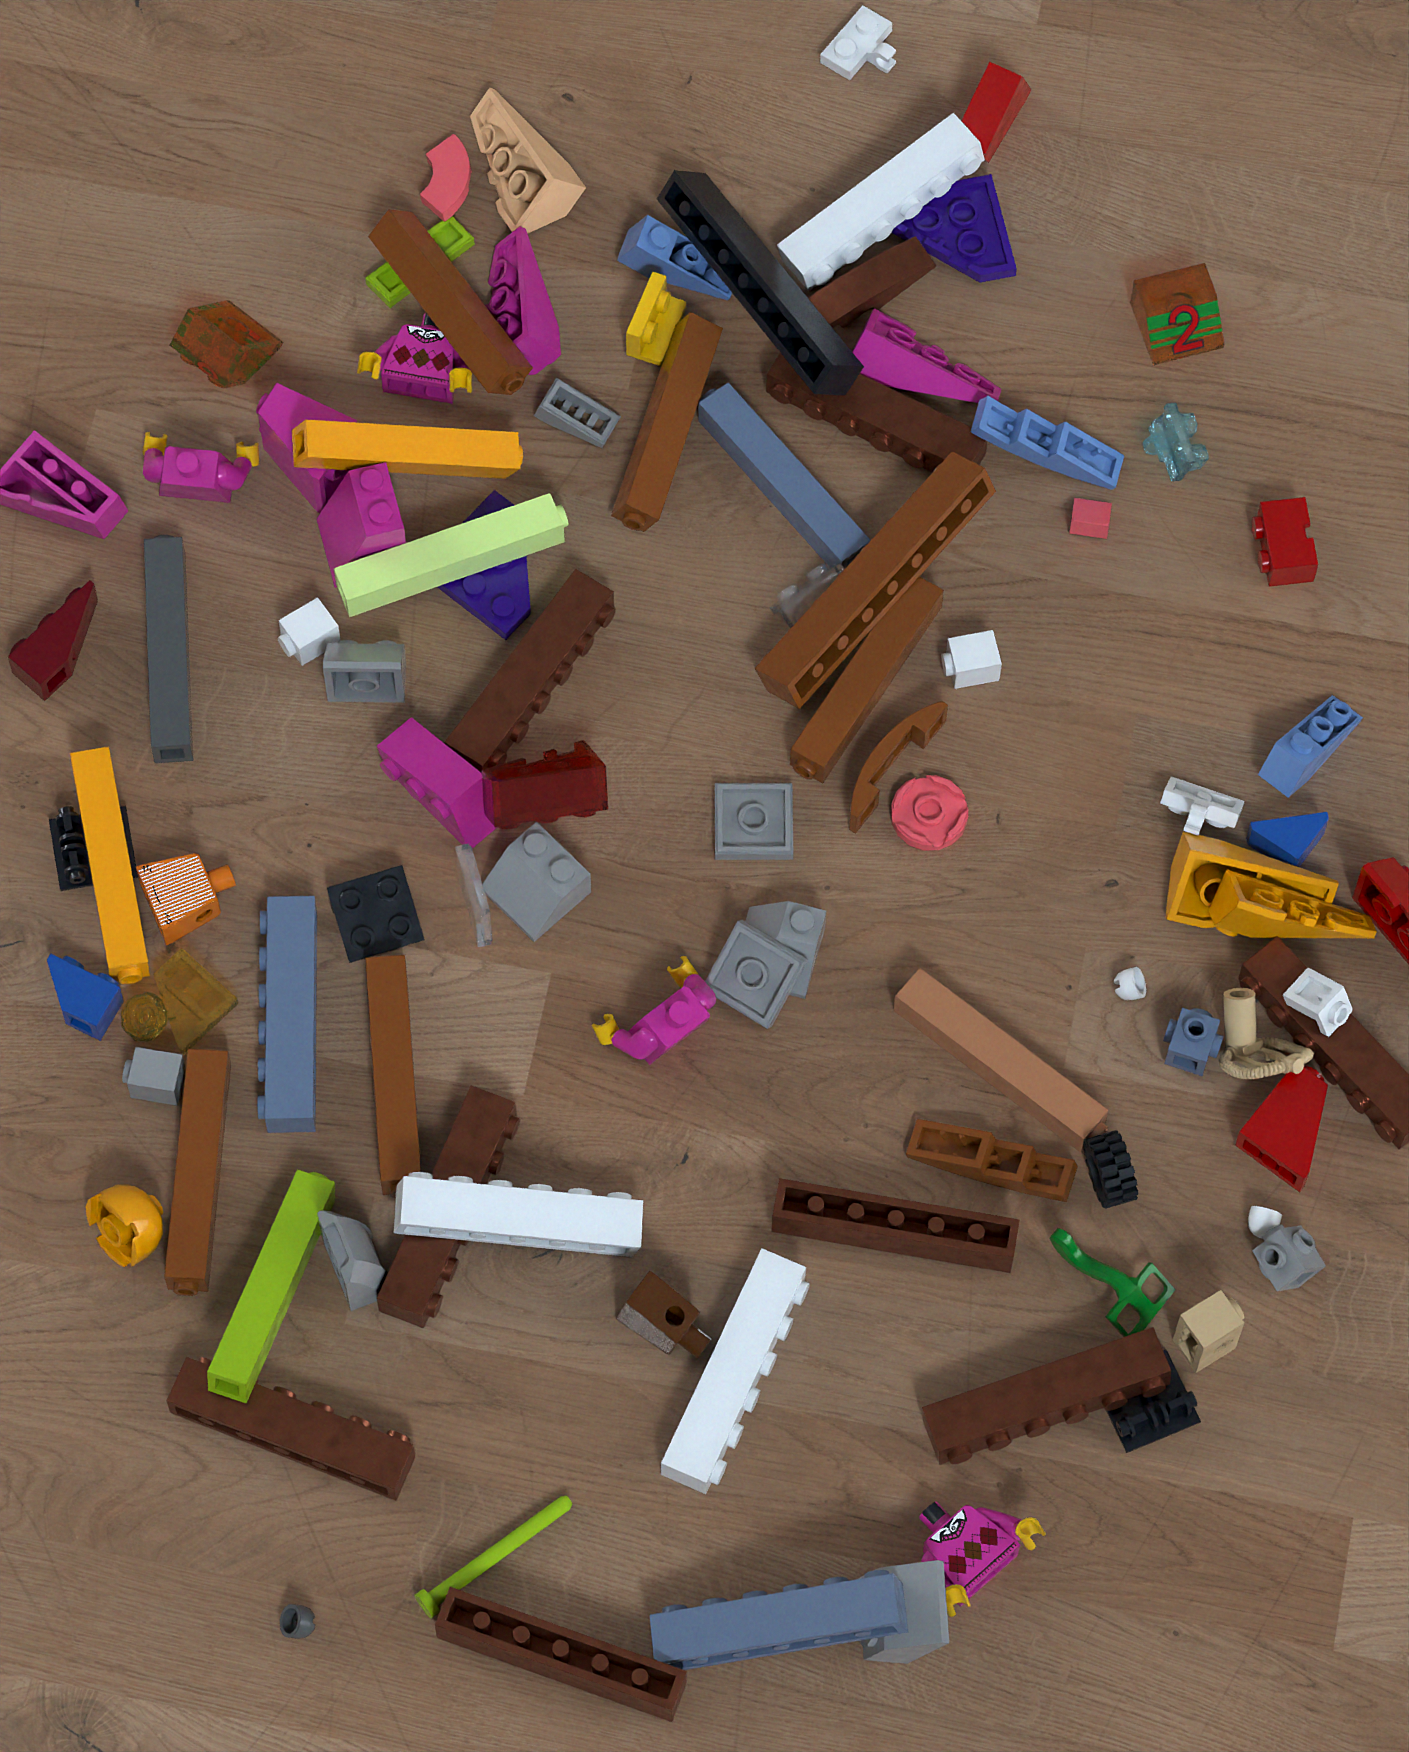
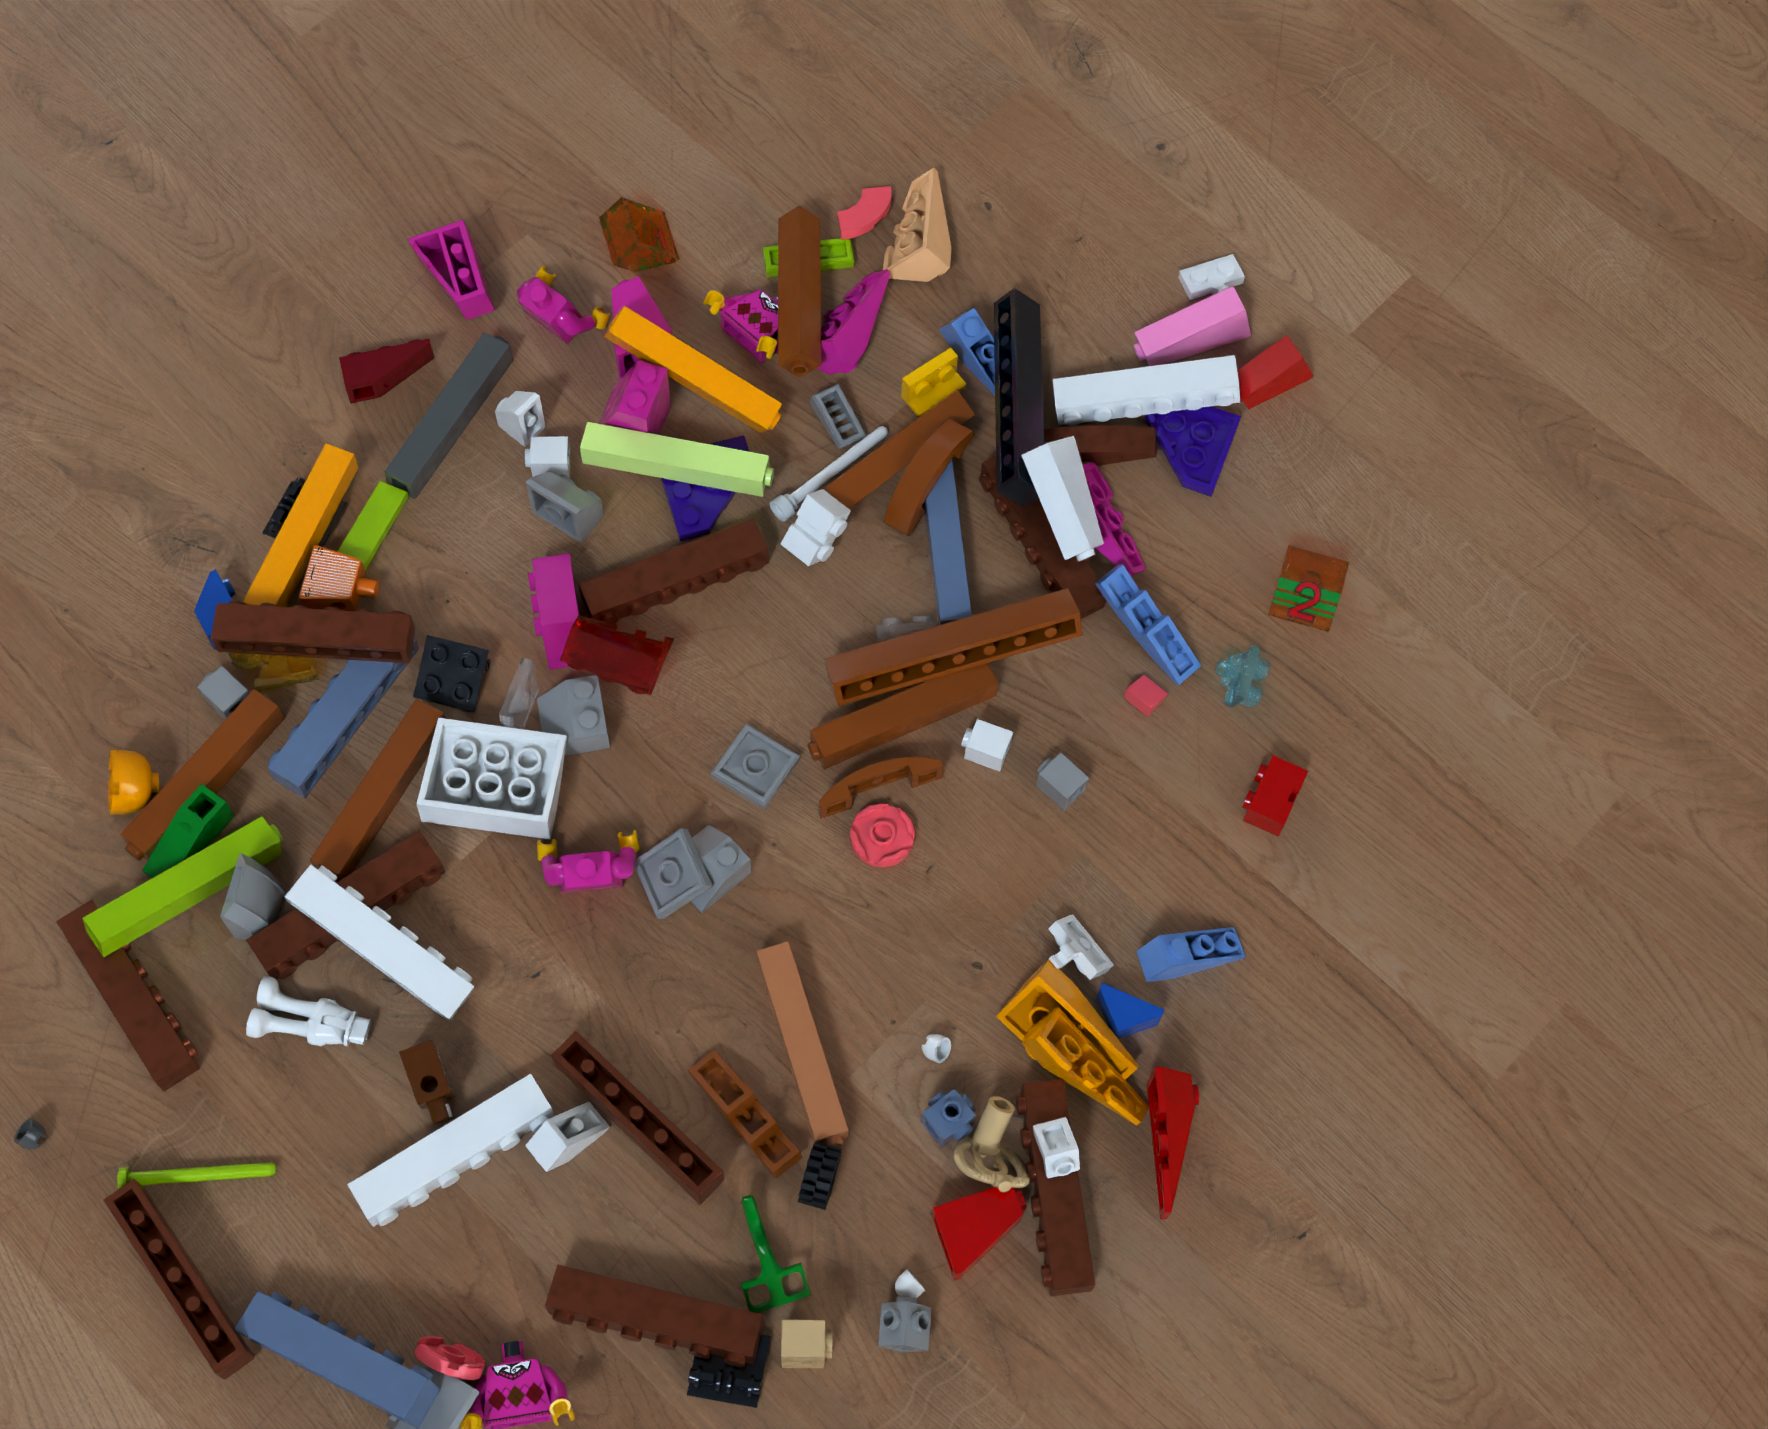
camera: 30 degrees right, 0 degrees up
(171, 808) = (374, 523): none -> lime tile
(213, 952) = (313, 632): none -> copper brick
(231, 1237) = (190, 830): none -> green slope
(246, 605) = (521, 416): none -> white slope
(504, 989) = (492, 778): none -> white slope
(514, 1332) = (326, 1023): none -> white piece
(591, 538) = (785, 506): none -> white piece
(647, 540) = (816, 528): none -> white brick
(719, 421) = (923, 473): none -> dark orange slope
(836, 1288) = (566, 1136): none -> white slope
(882, 109) = (1194, 330): none -> bright pink slope
(884, 1556) = (453, 1360): none -> coral tile
(888, 359) = (1065, 496): none -> white slope
(1069, 651) = (1061, 780): none -> light grey brick

